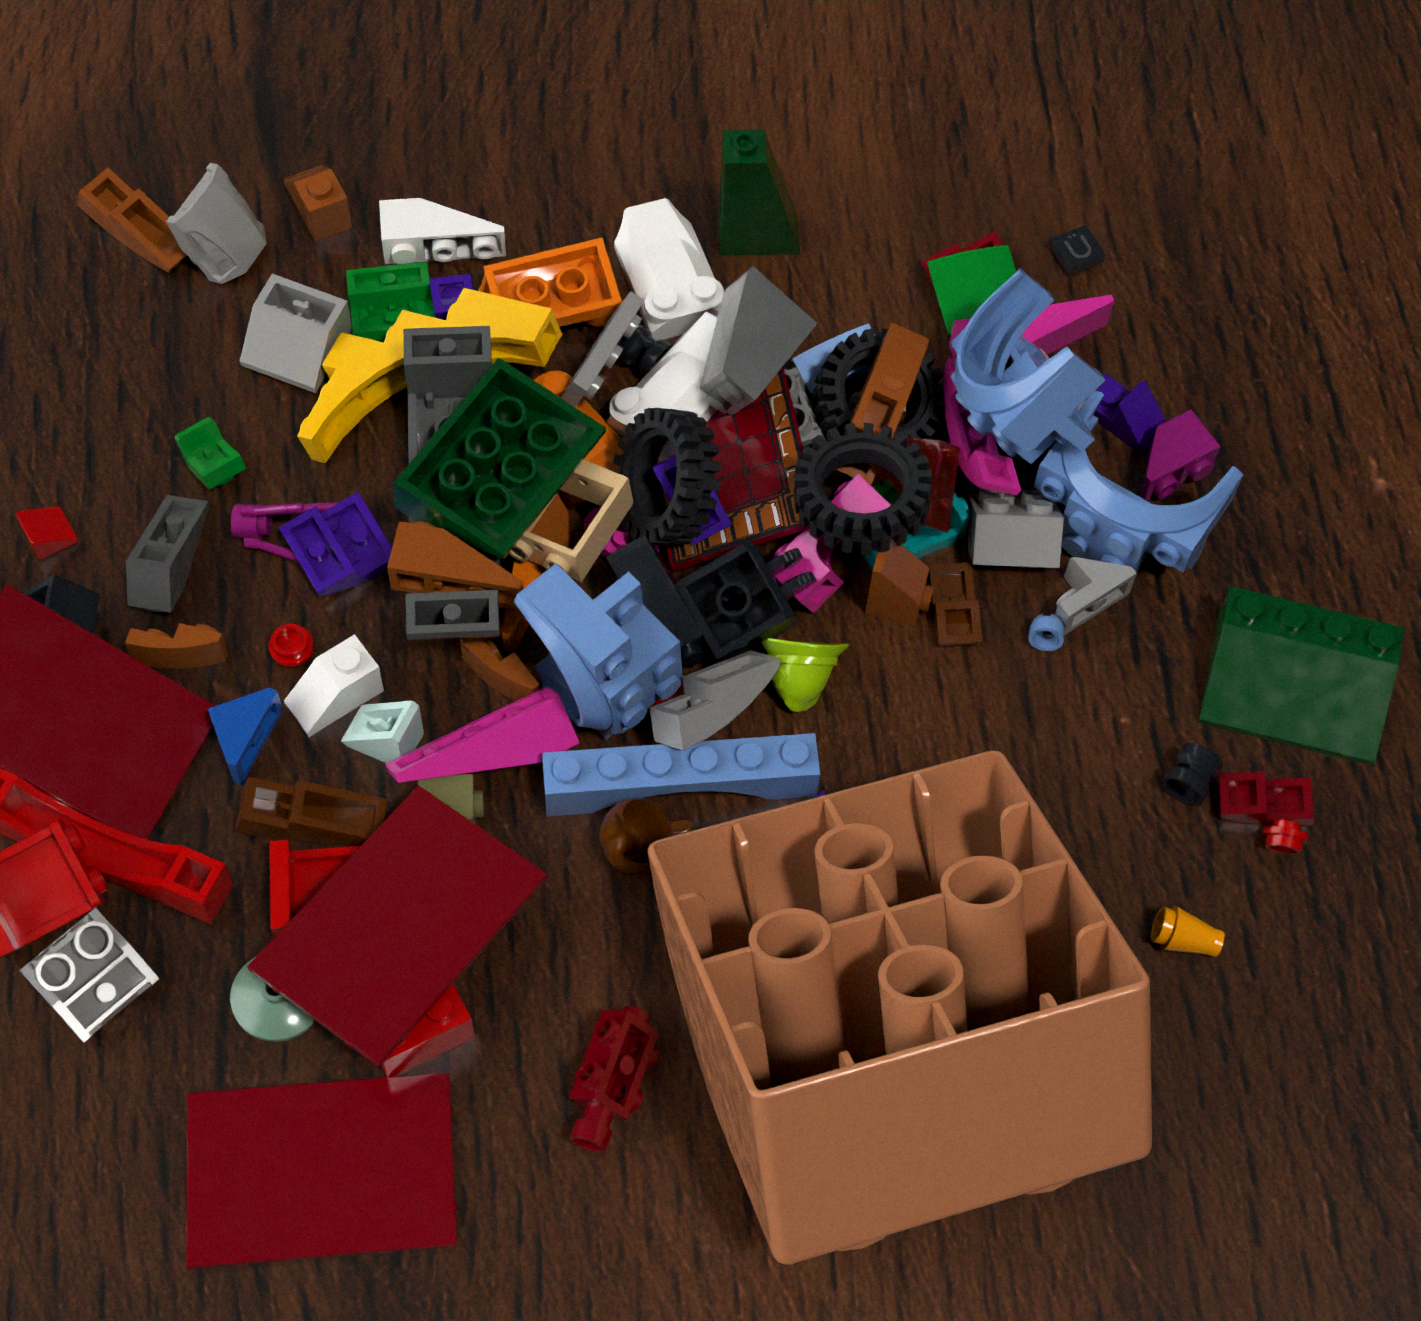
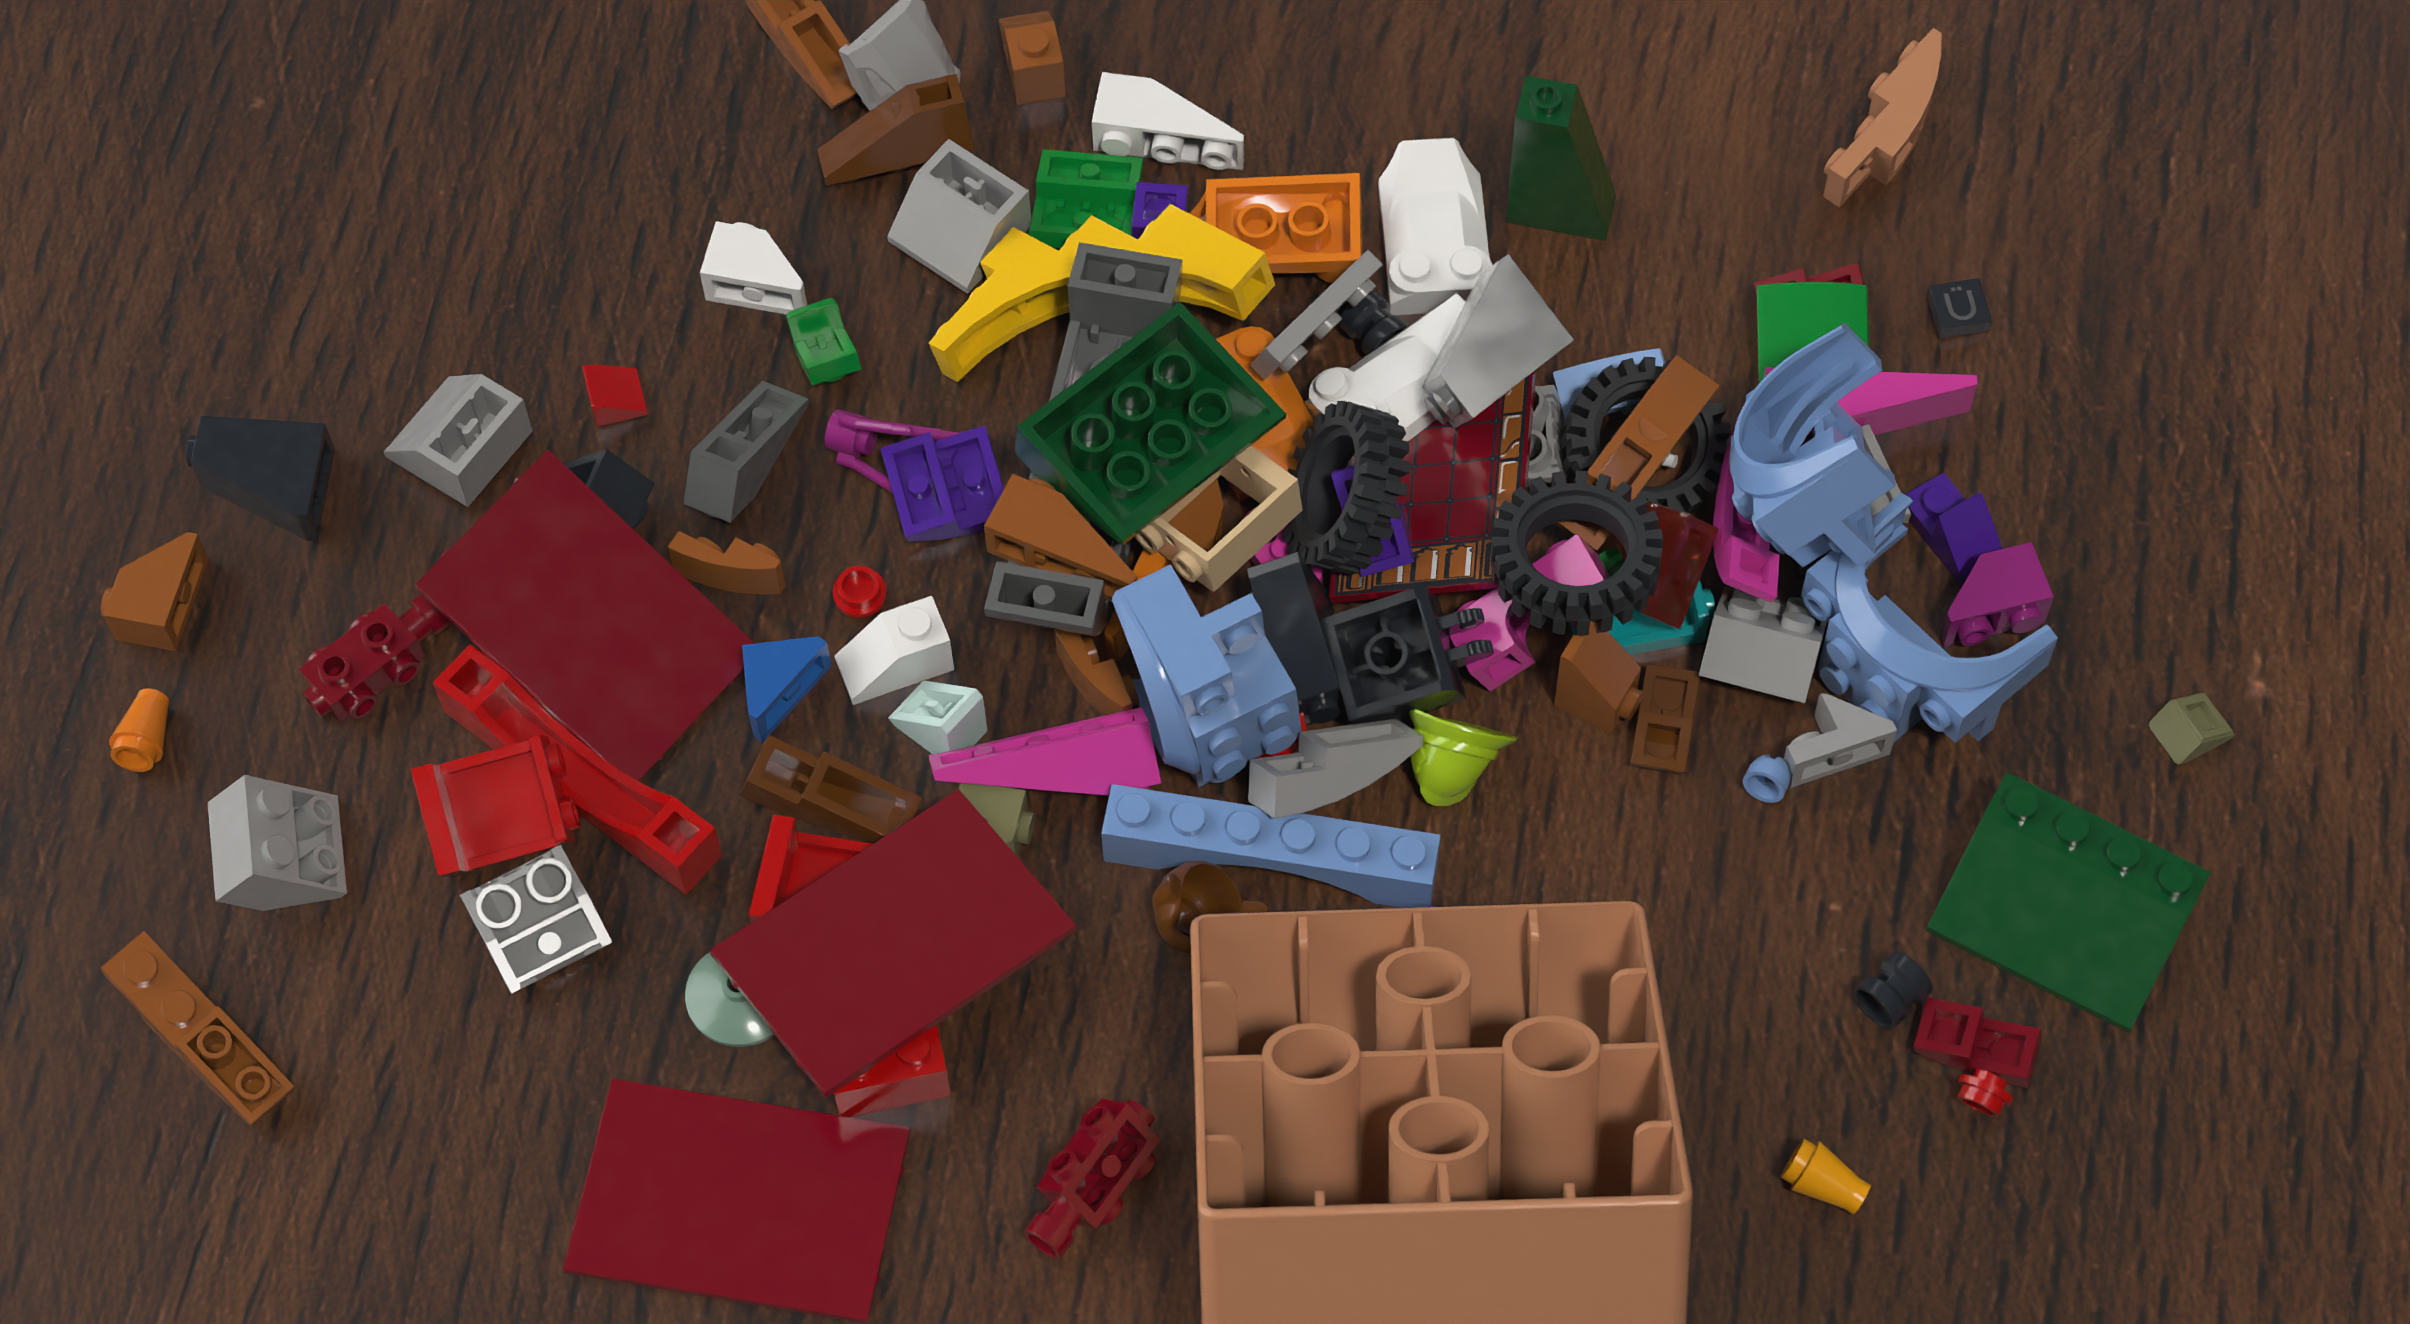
camera: 20 degrees right, 0 degrees up
(135, 410) = (749, 270): none -> white slope
(228, 278) = (899, 132): none -> reddish brown slope
(986, 123) = (1893, 122): none -> nougat slope
(1343, 524) = (2190, 727): none -> olive slope

